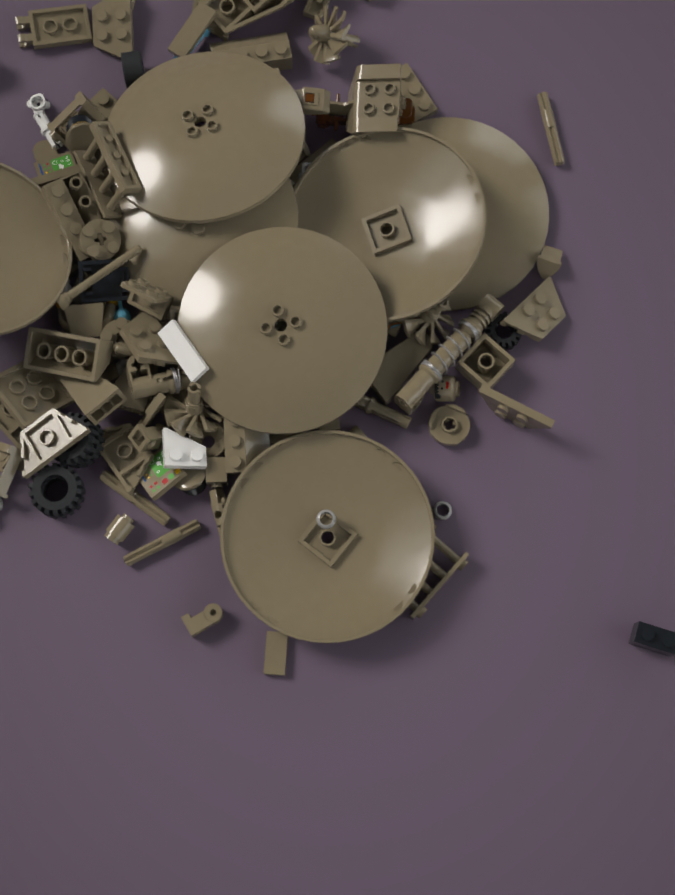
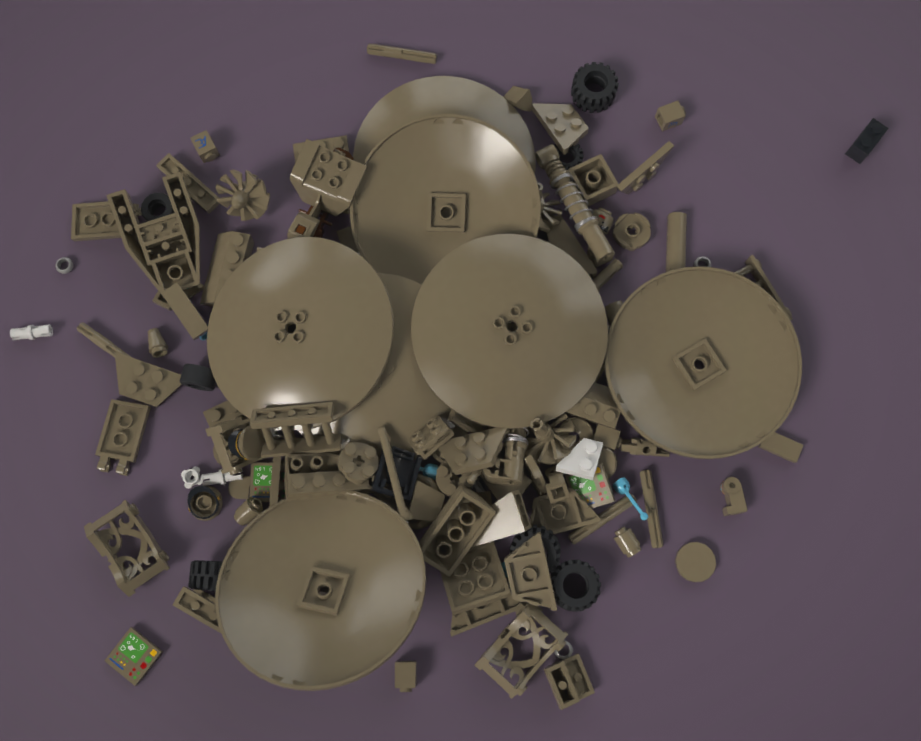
camera: 65 degrees left, 0 degrees up
(18, 124) = (204, 502): none -> dark tan piece
(23, 163) = (248, 511): none -> dark tan brick
(123, 604) = (695, 562): none -> dark tan tile
(153, 21) = (156, 343): none -> dark tan cone
(172, 505) = (622, 487): none -> medium azure hinge
(183, 351) = (498, 421): white tile -> none
(326, 512) = (691, 351): light grey piece -> none
(454, 475) = (676, 241): none -> dark tan brick
(596, 421) = (670, 115): none -> dark tan brick
(600, 317) = (599, 75): none -> black tyre

